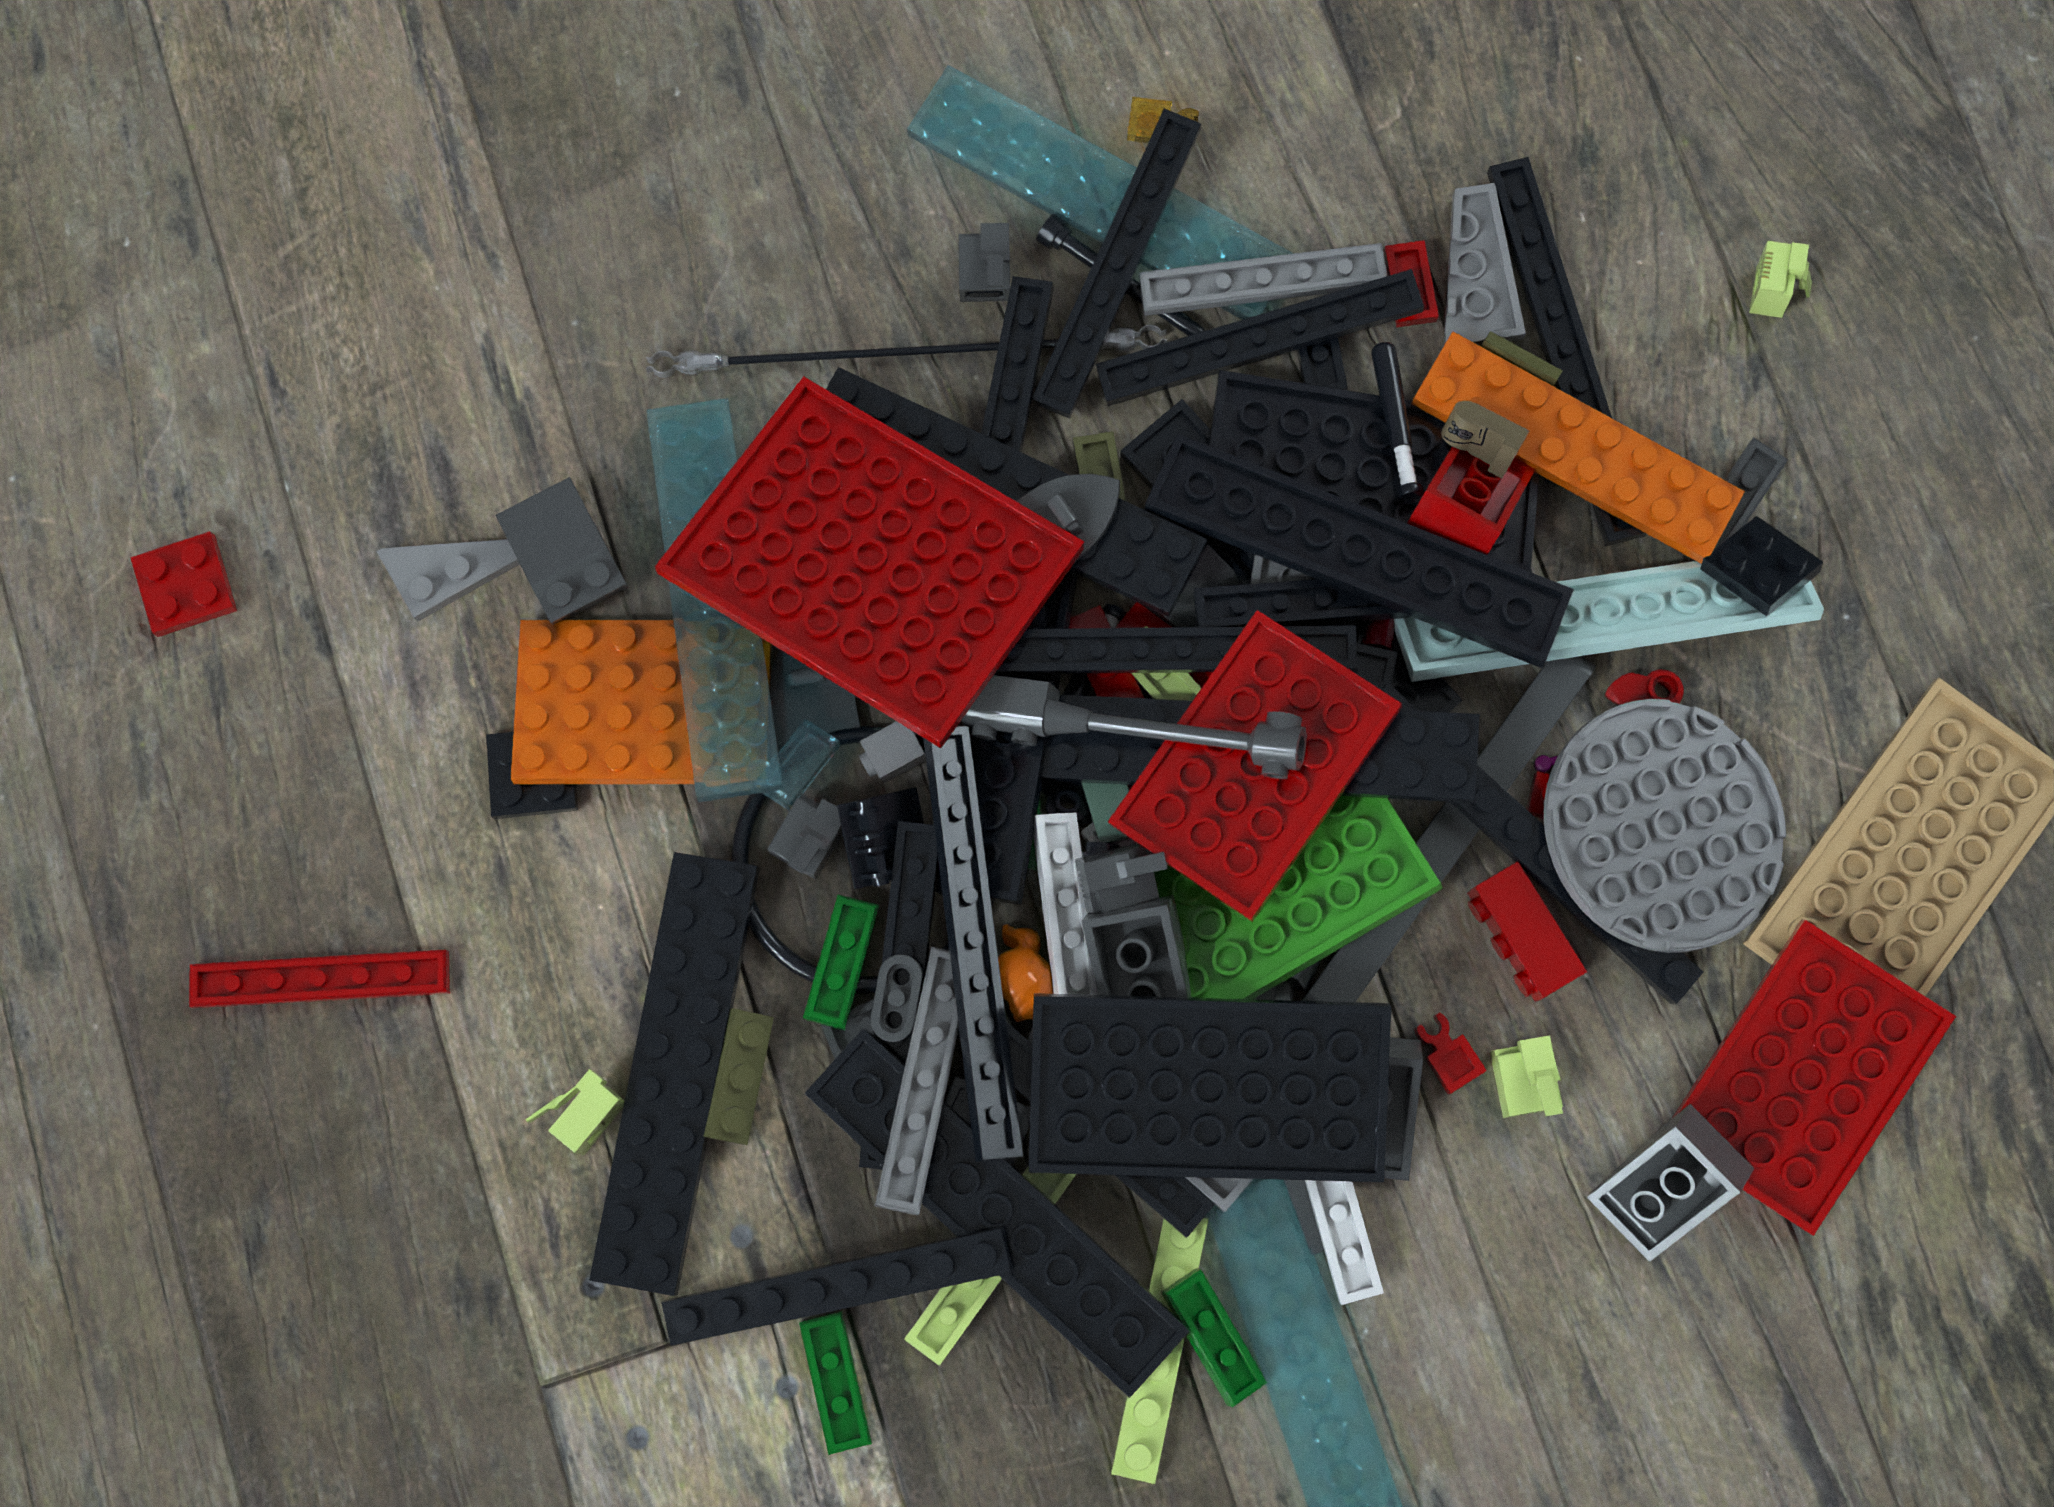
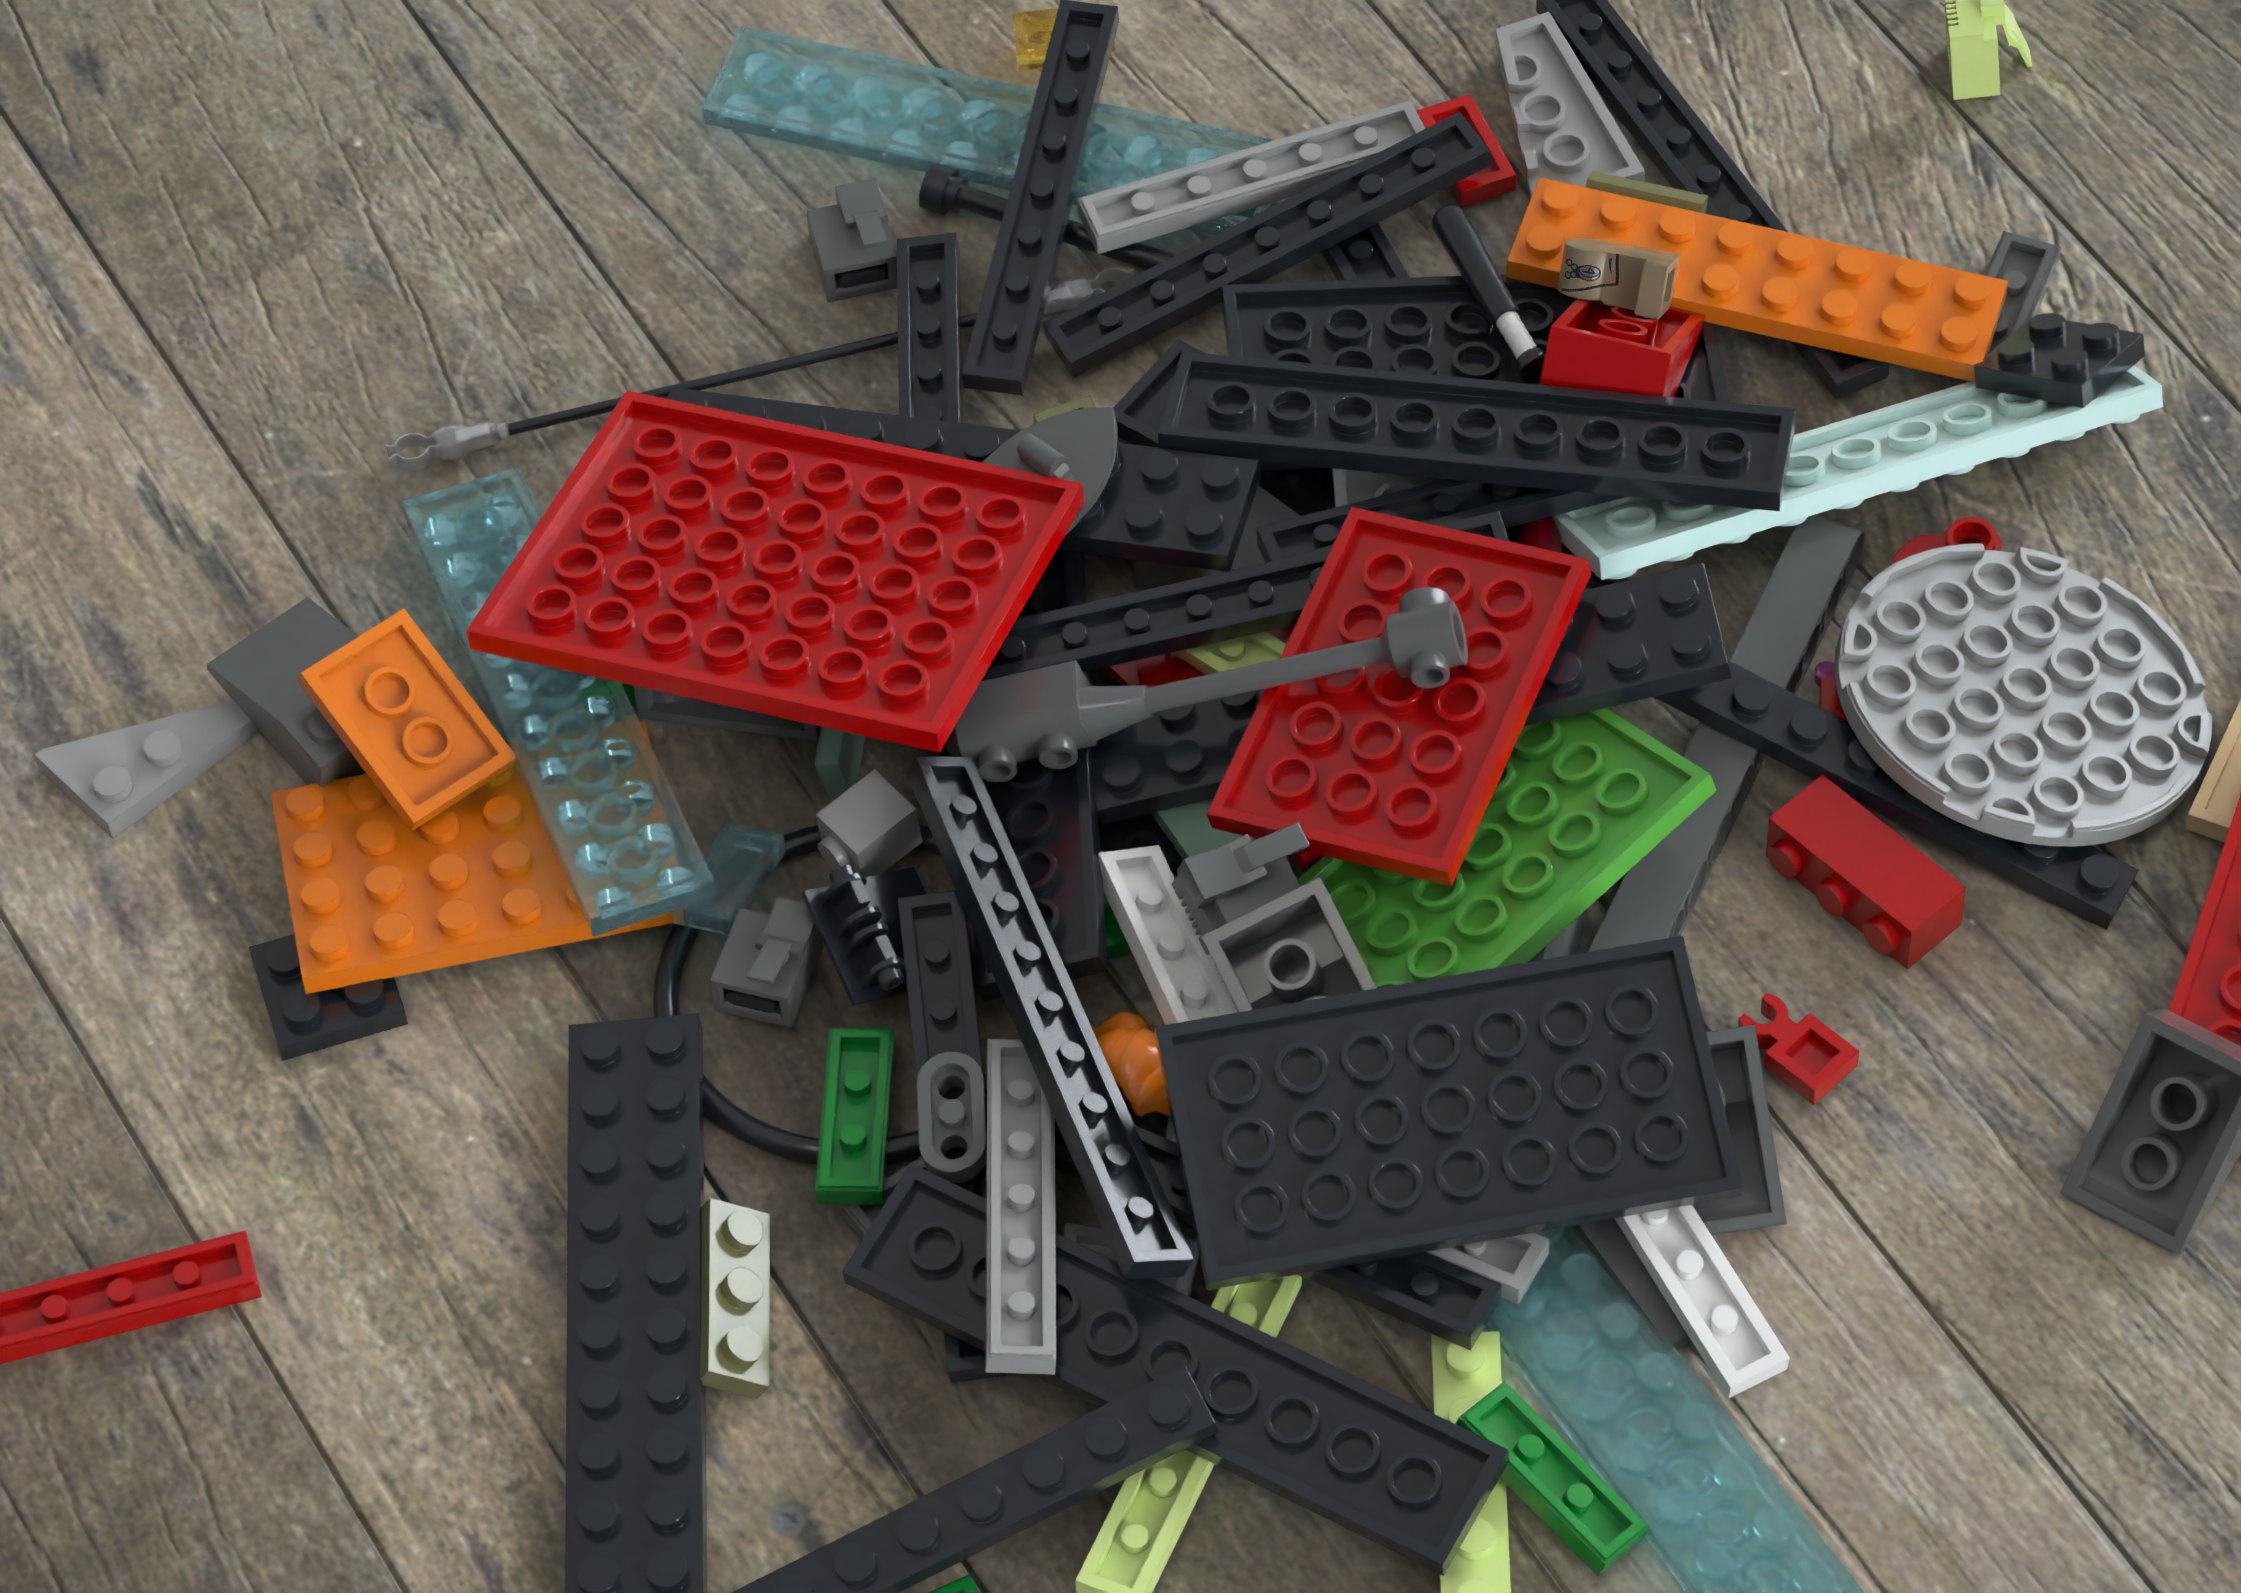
camera: 10 degrees left, 25 degrees down
(586, 1115) = (511, 1384): yellowish green piece -> none
(610, 607) = (407, 719): none -> orange plate
(805, 694) = (728, 780): dark grey shield -> none
(1527, 1078) = (1923, 1052): yellowish green piece -> none

